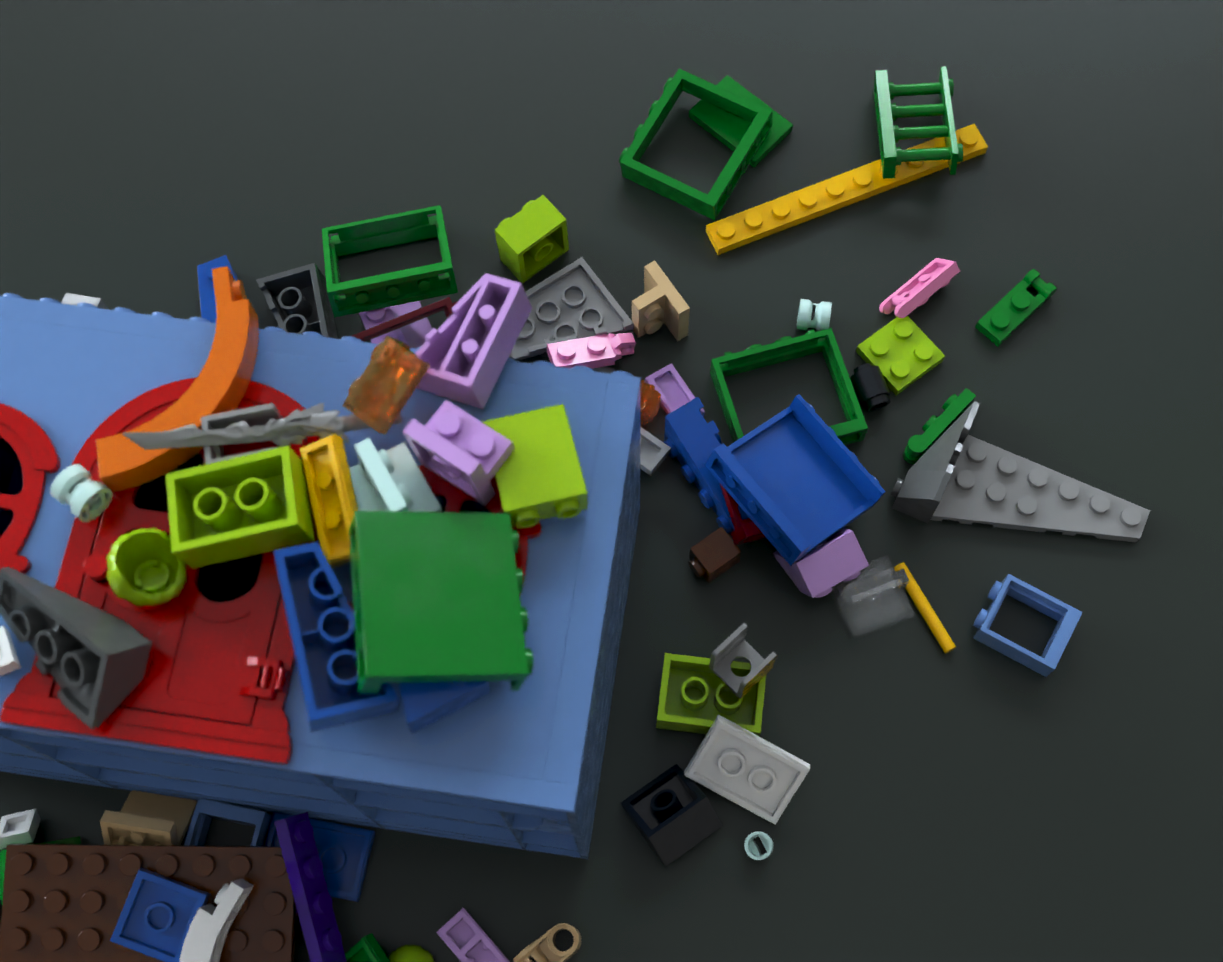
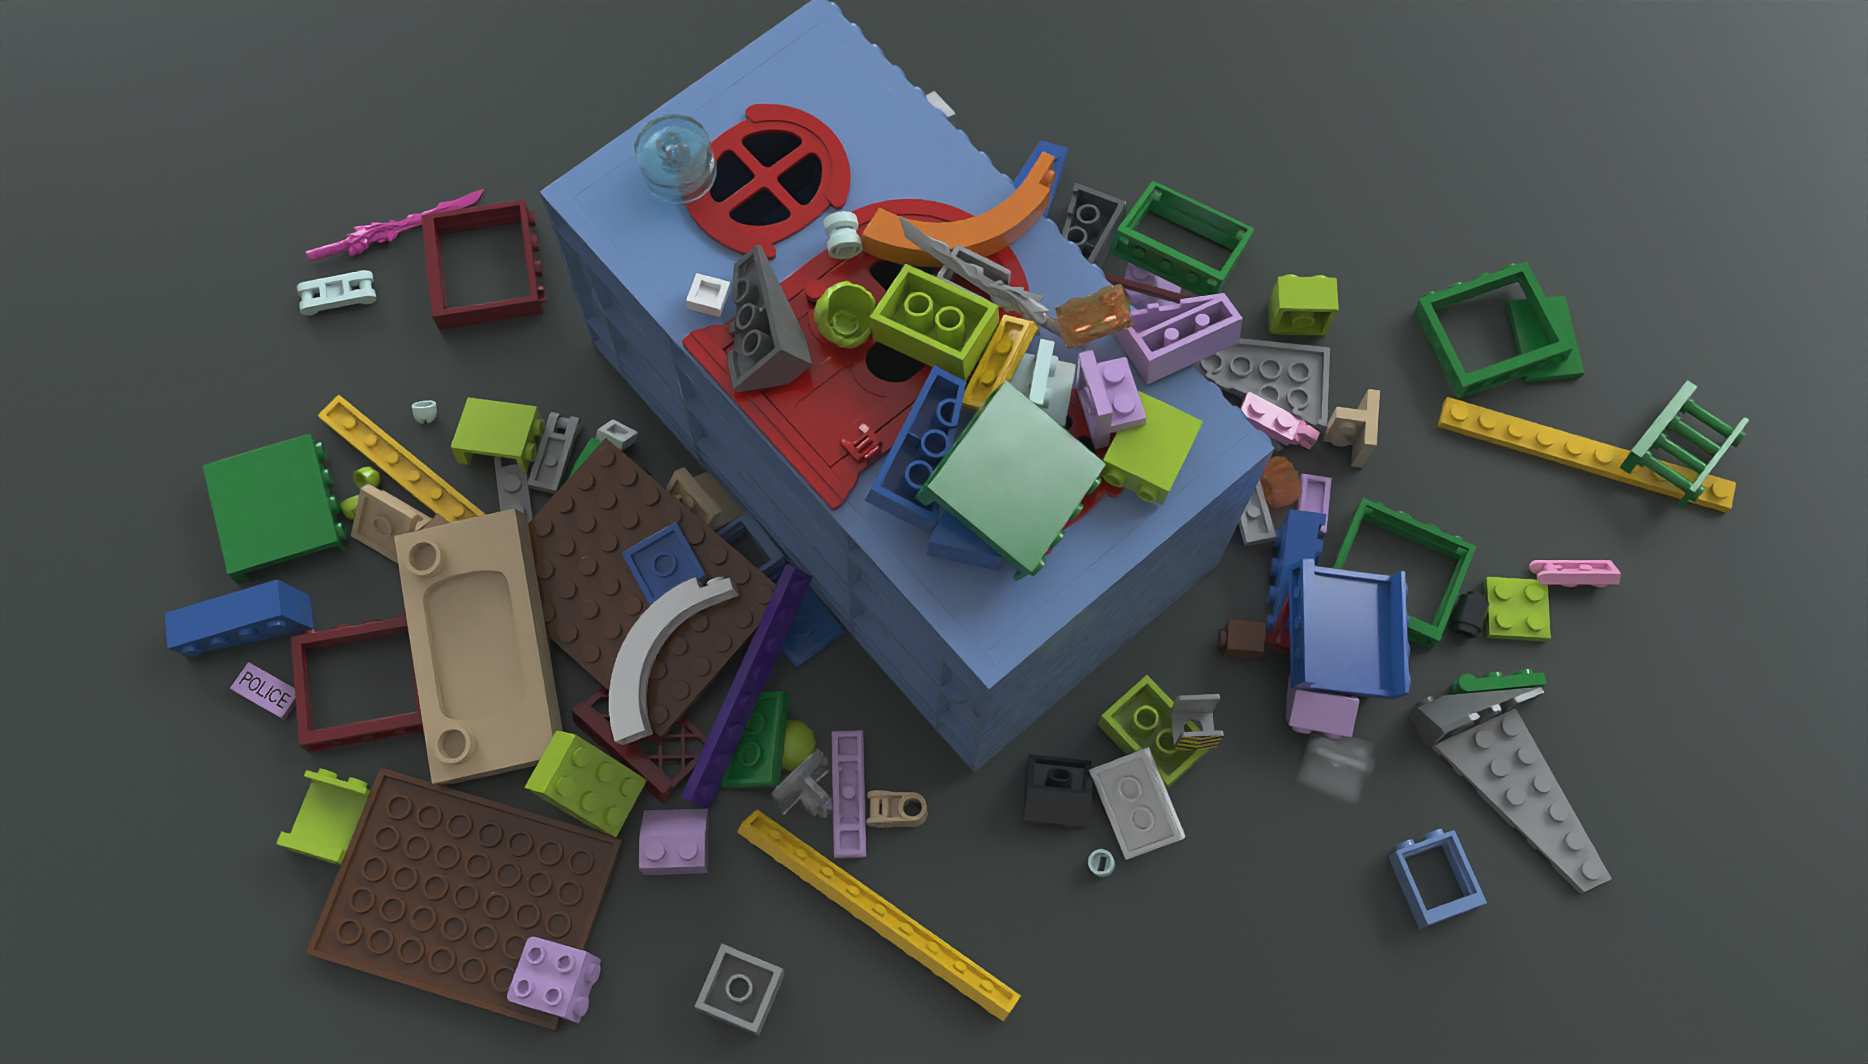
camera: 35 degrees right, 0 degrees up
(821, 315) = (1477, 532): light aqua wheel -> none
(927, 611) = (1369, 806): yellow bar -> none
(1015, 308) = (1641, 647): green plate -> none

